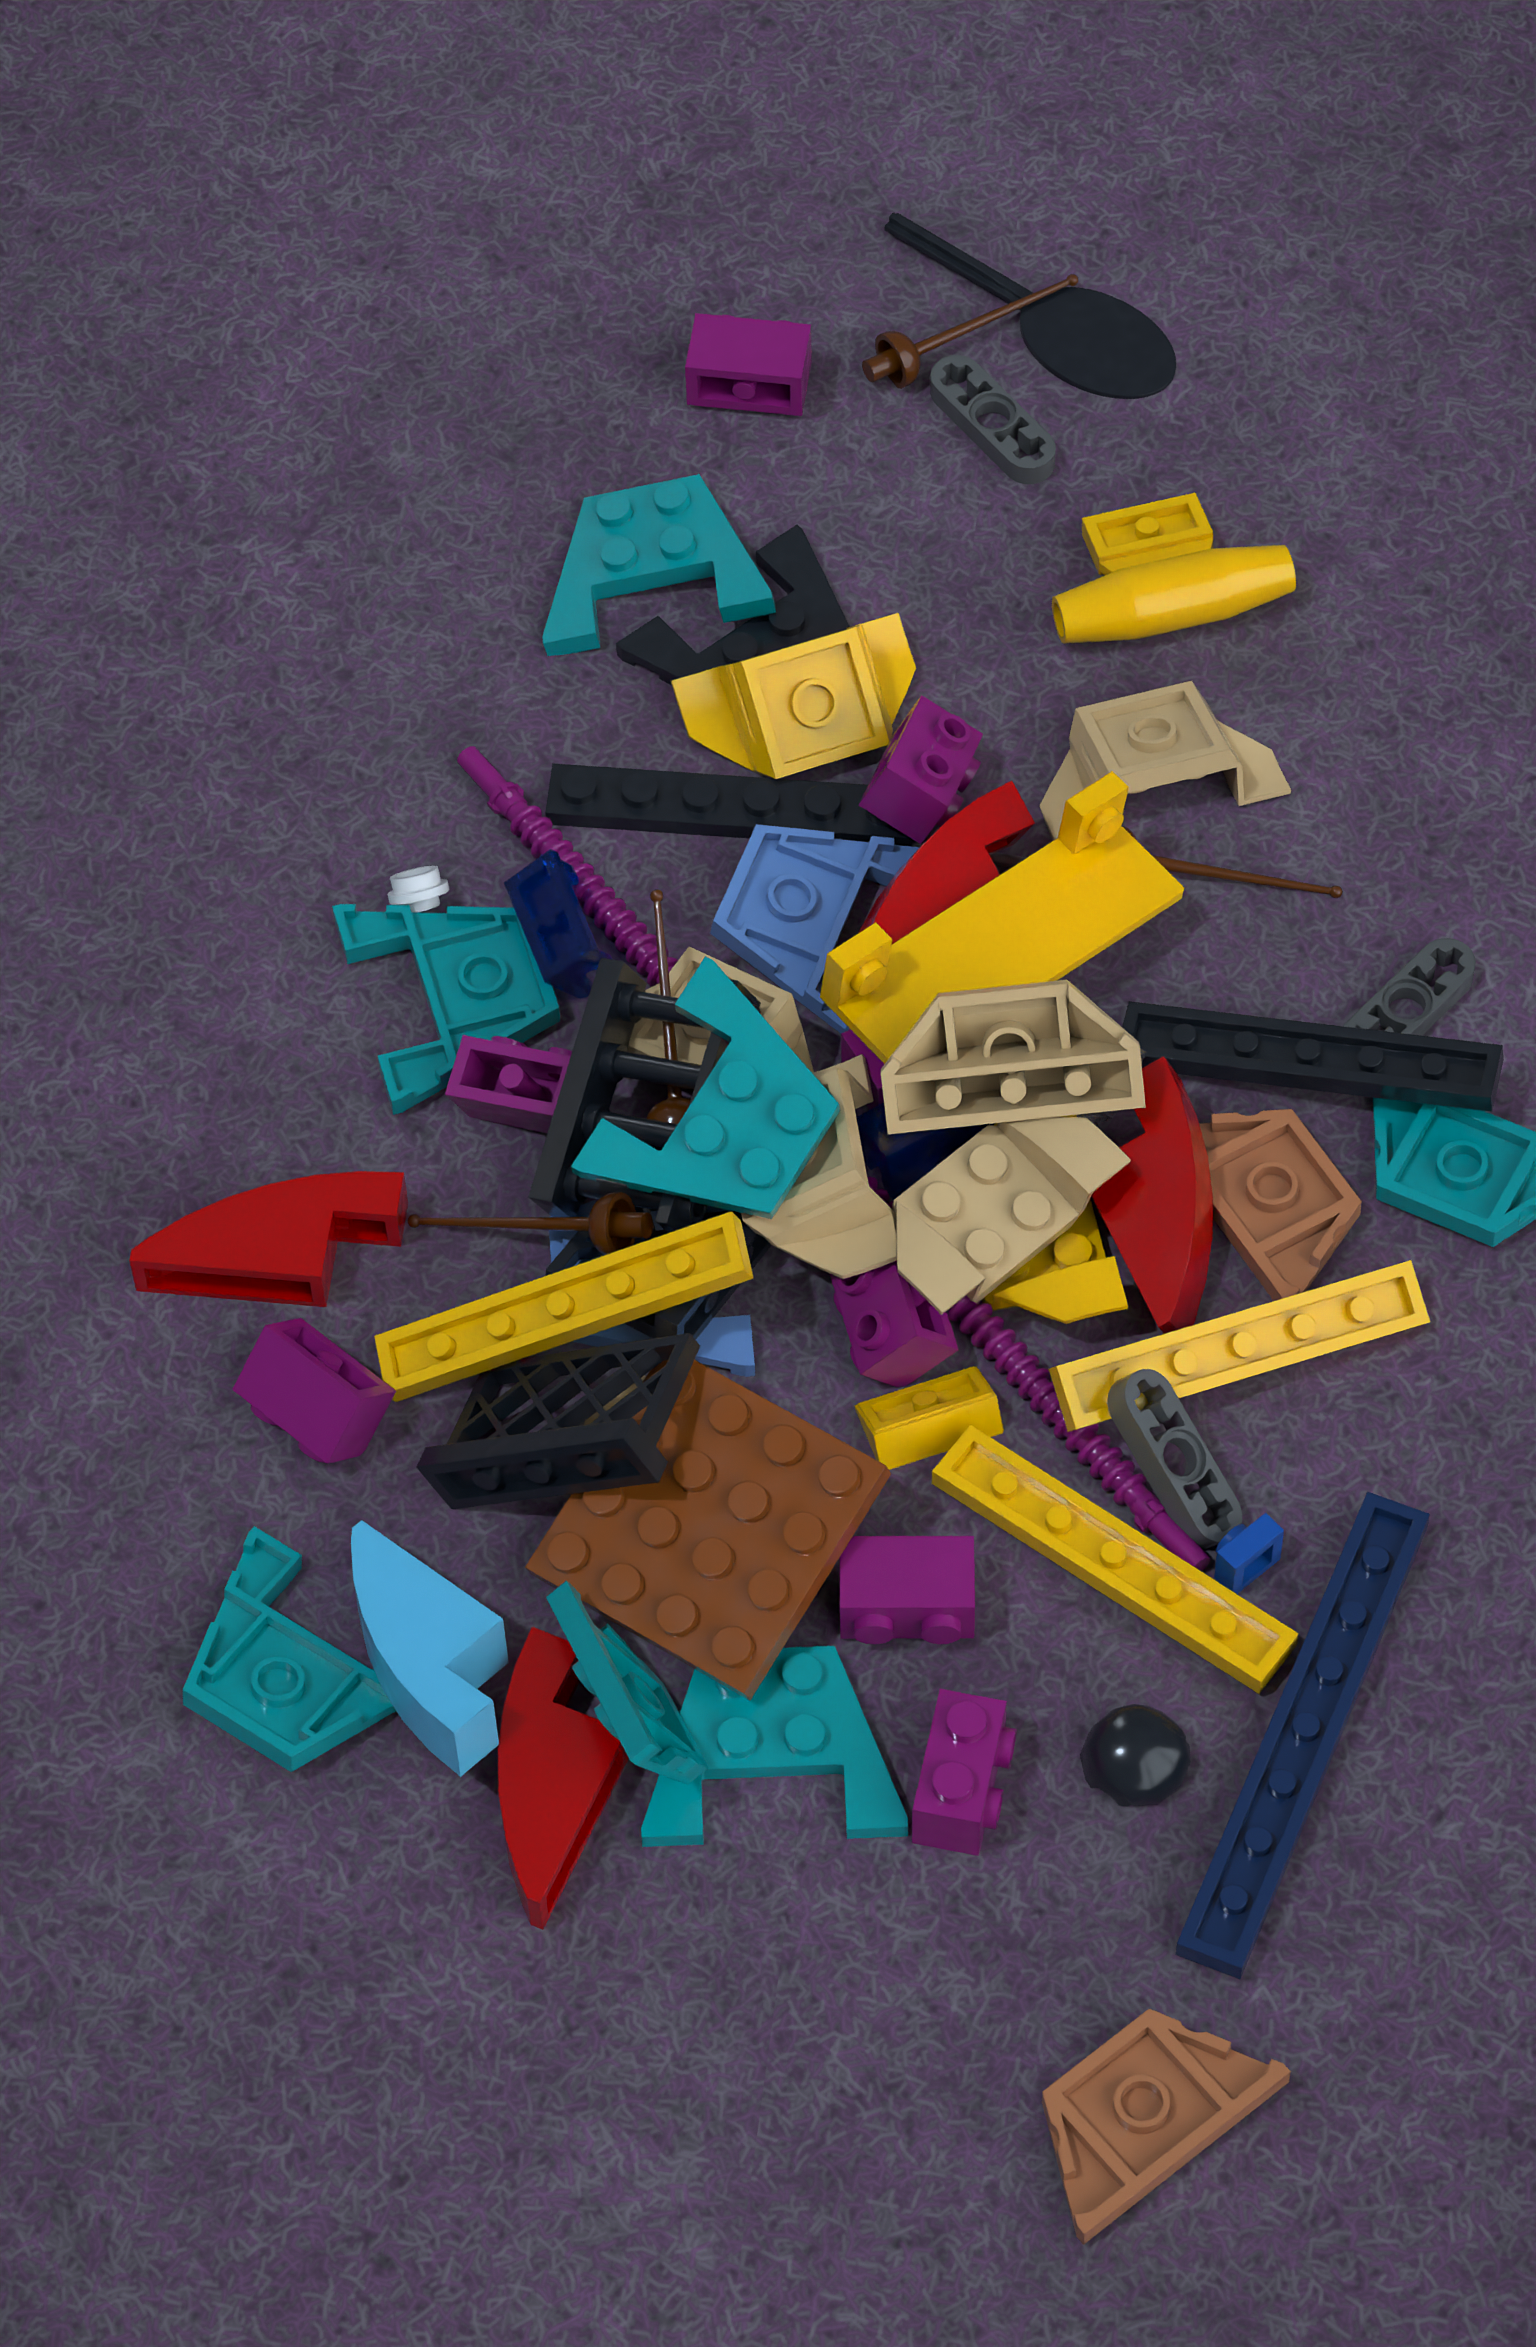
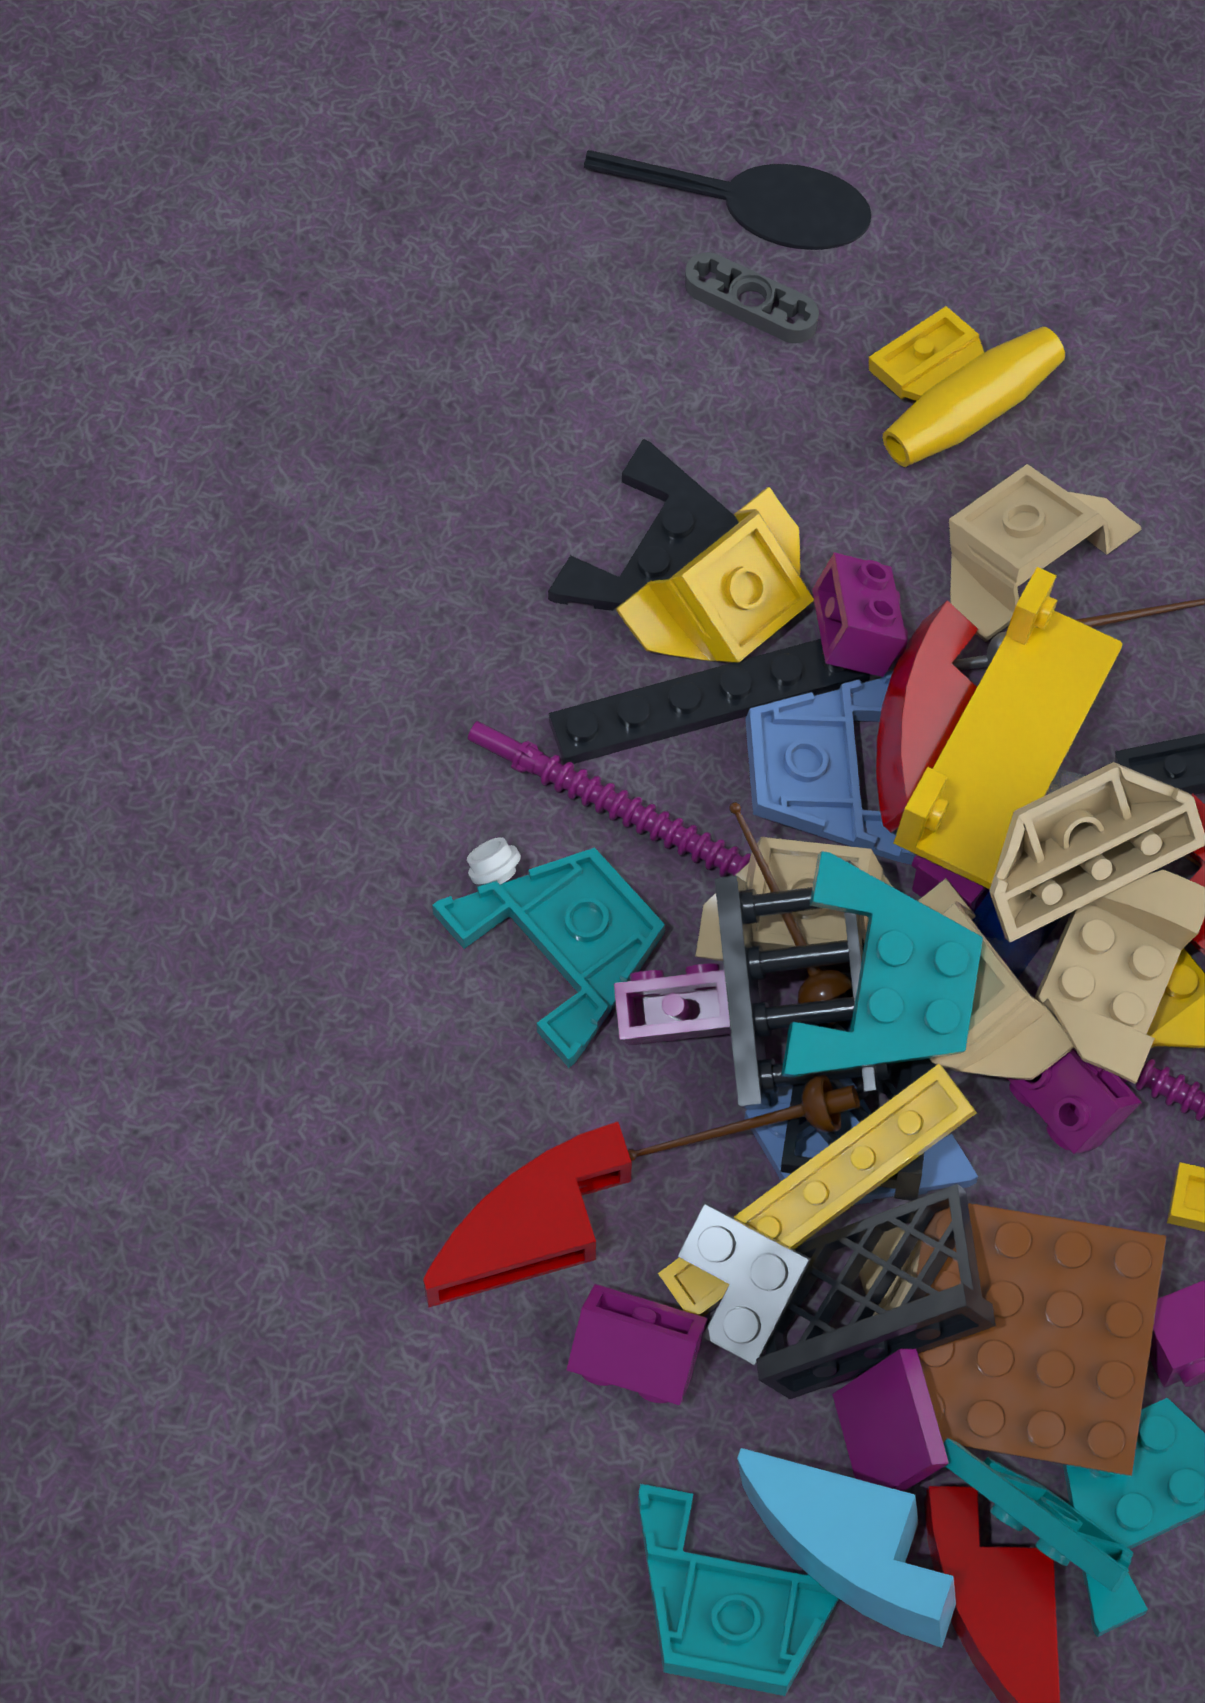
camera: 25 degrees left, 5 degrees up
(465, 1366) = (759, 1277): none -> plate
(527, 1552) = (891, 1423): none -> magenta tile
(555, 923) = (632, 853): clear blue hinge -> none
(646, 542) = (534, 492): teal wing -> none
(748, 364) = (540, 316): magenta brick -> none
(900, 357) = (654, 270): reddish brown sword -> none
(929, 1417) = (1135, 1165): yellow slope -> none

